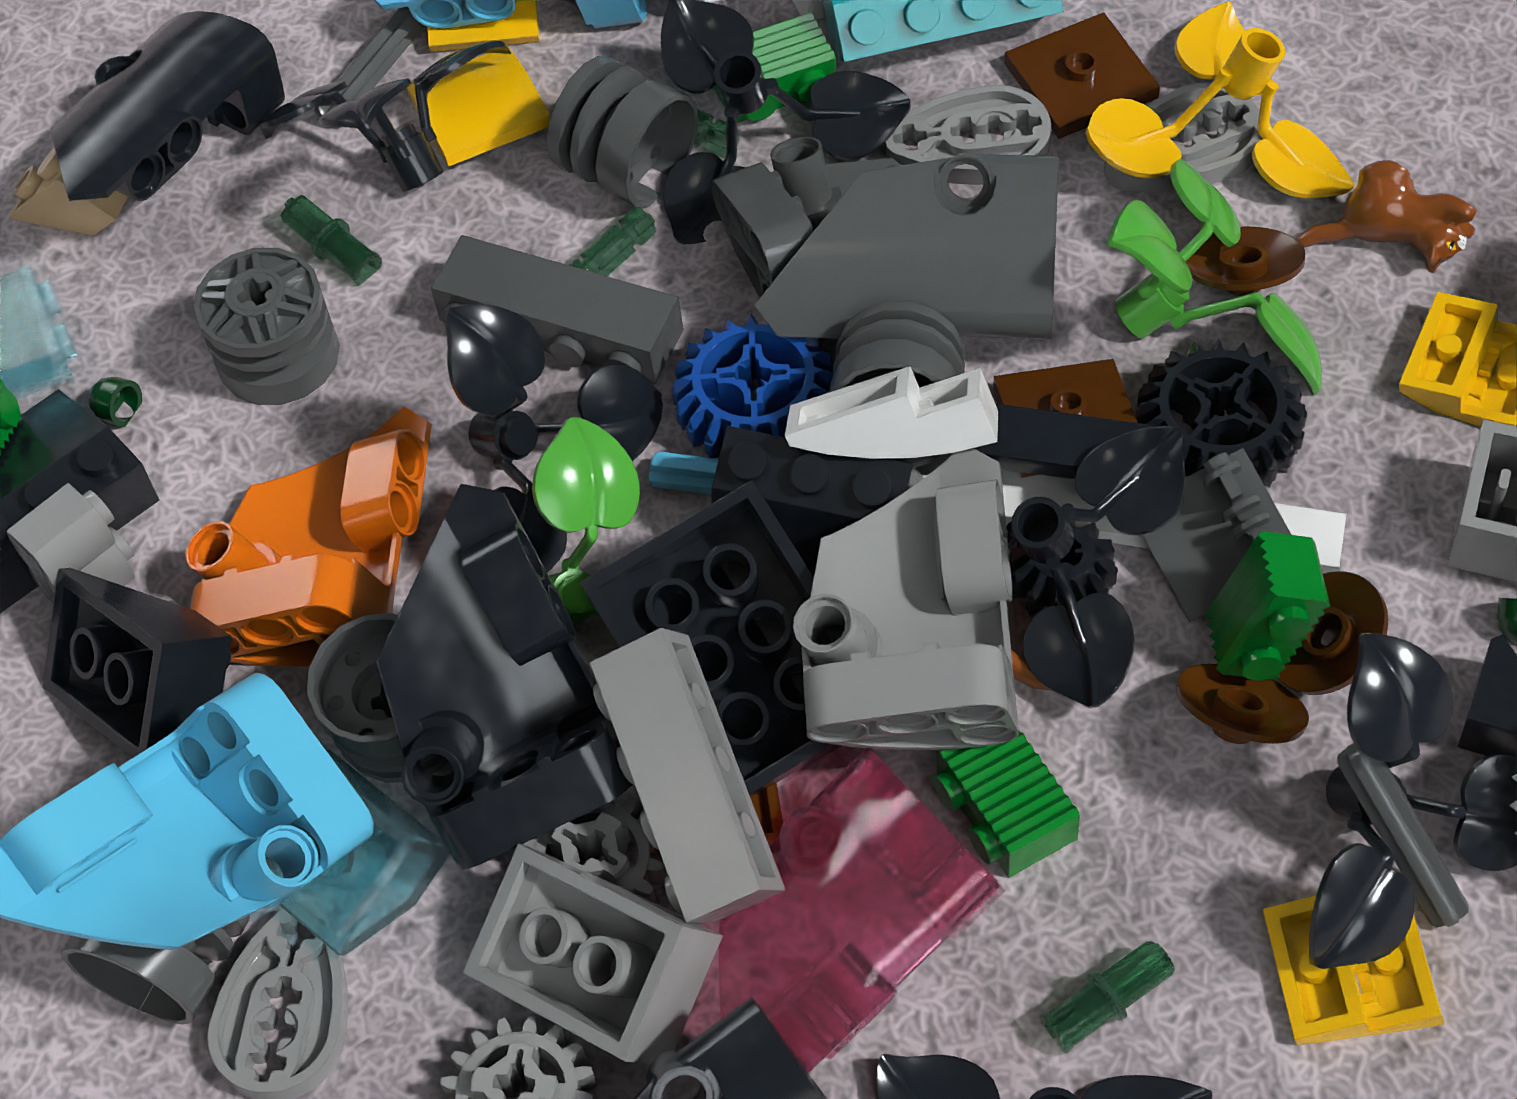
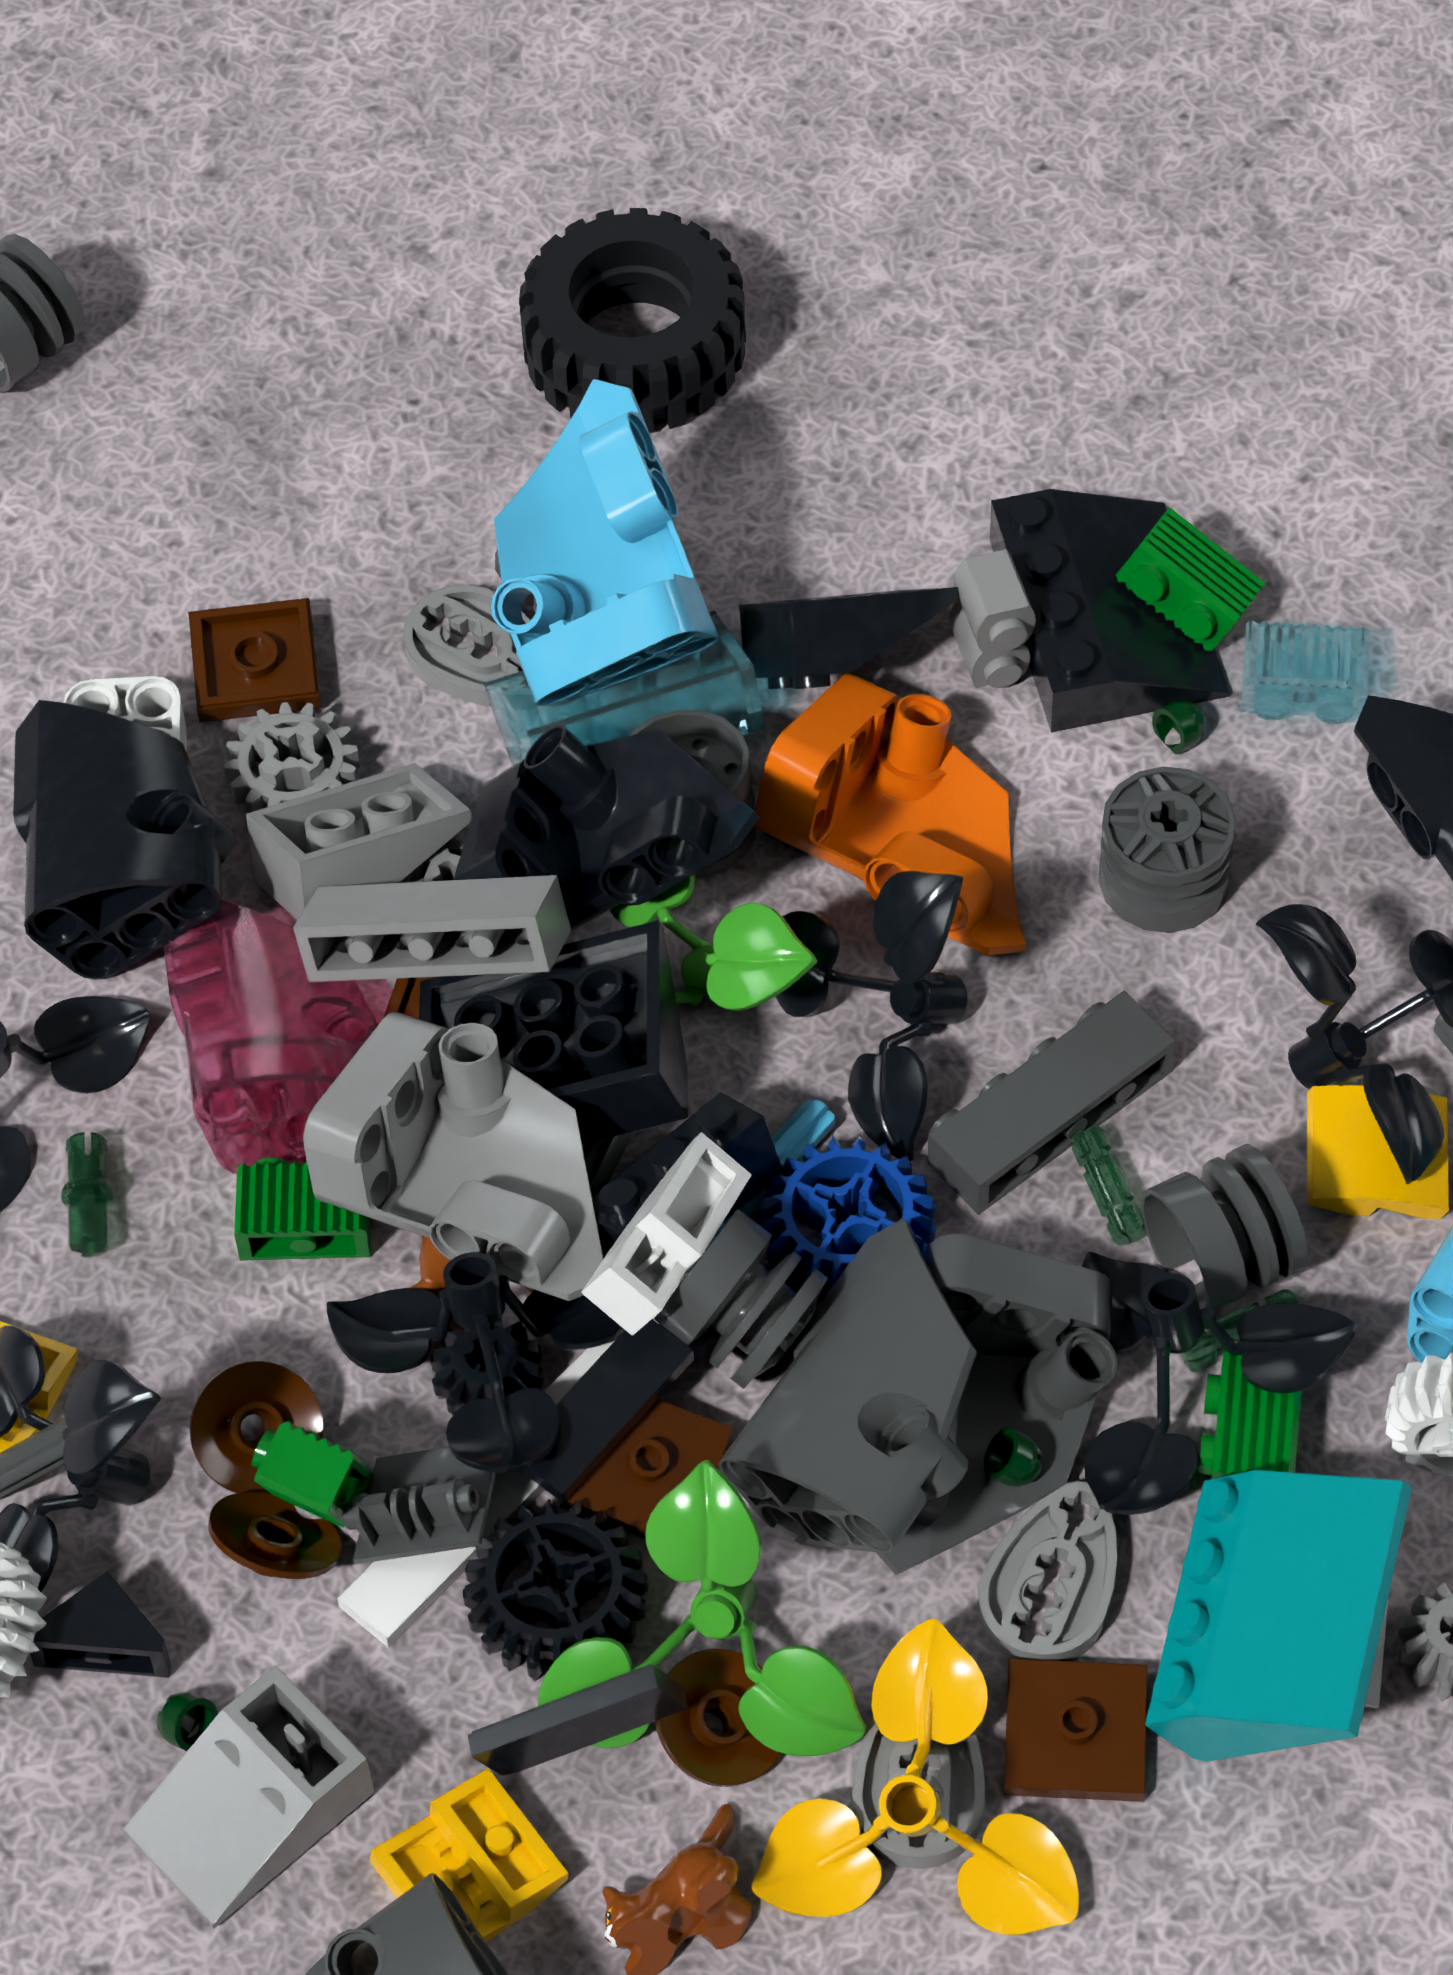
camera: 115 degrees right, 0 degrees up
(330, 239) = (1248, 966): clear green axle -> none
(1331, 319) = (577, 1720): none -> black tile

